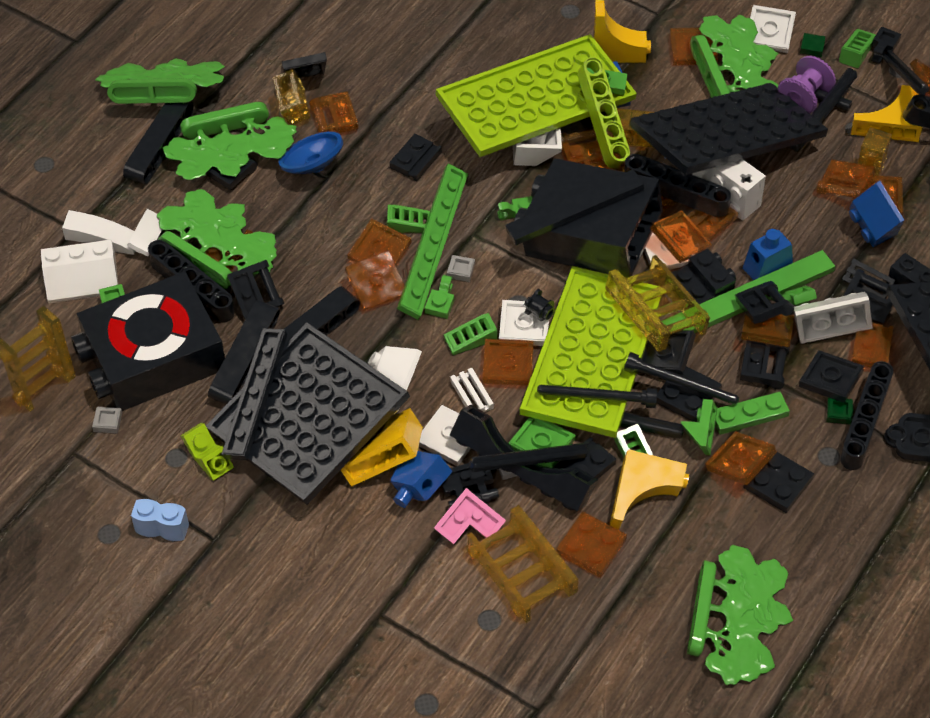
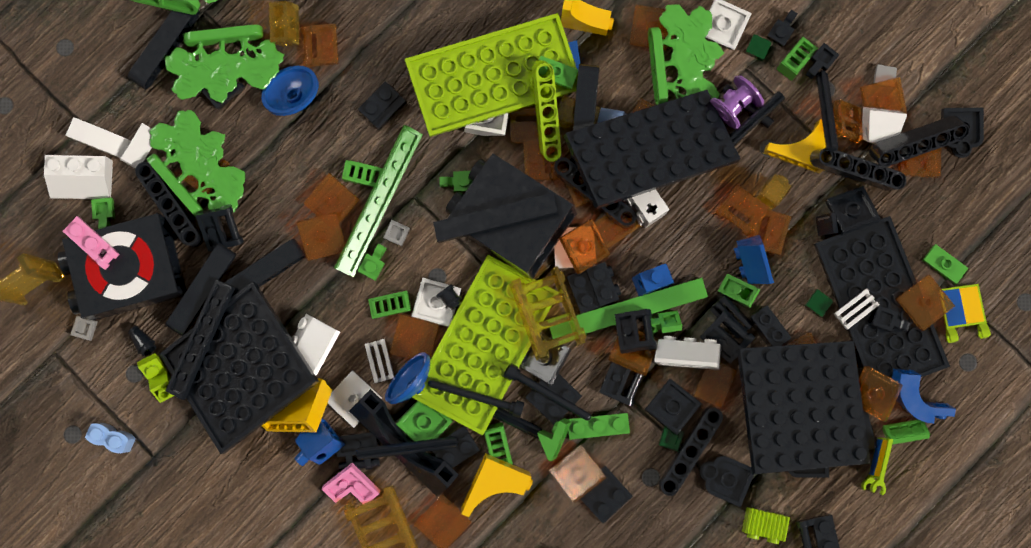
camera: 10 degrees right, 30 degrees up
(112, 307) = (90, 242): none -> bright pink plate
(181, 417) = (143, 343): none -> black cone
(517, 387) = (409, 379): none -> blue dish
(643, 102) = (586, 97): none -> black beam
(833, 27) = (781, 30): none -> black plate
(869, 250) = (738, 290): none -> bright green slope

